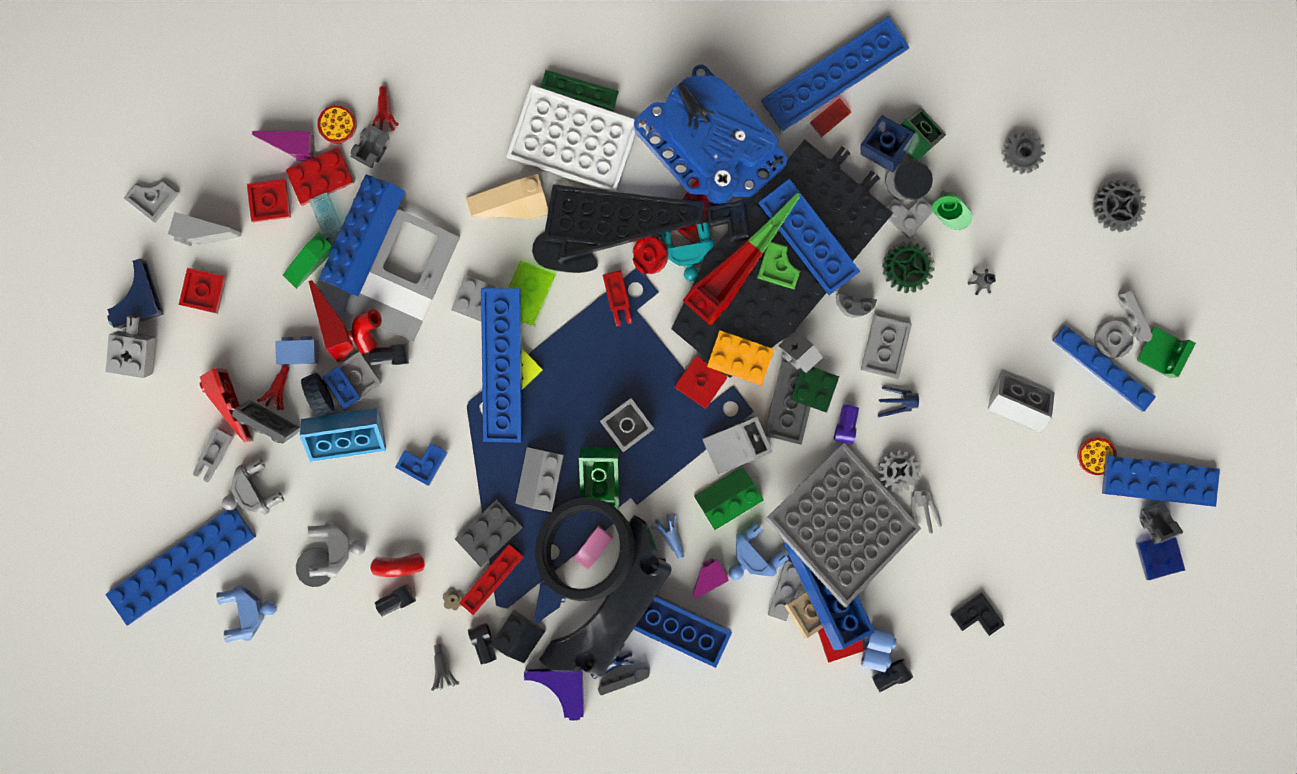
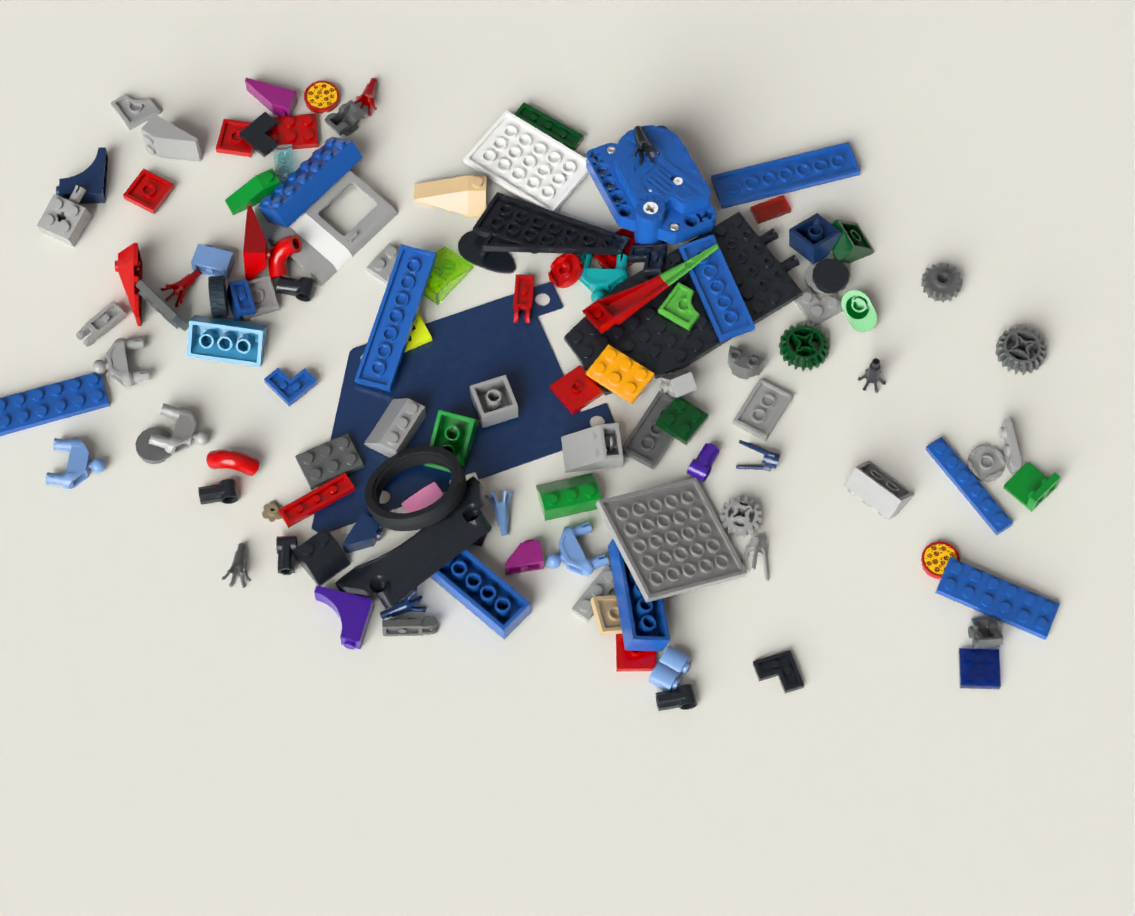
camera: 20 degrees right, 25 degrees down
(286, 193) = (256, 134): none -> black tile

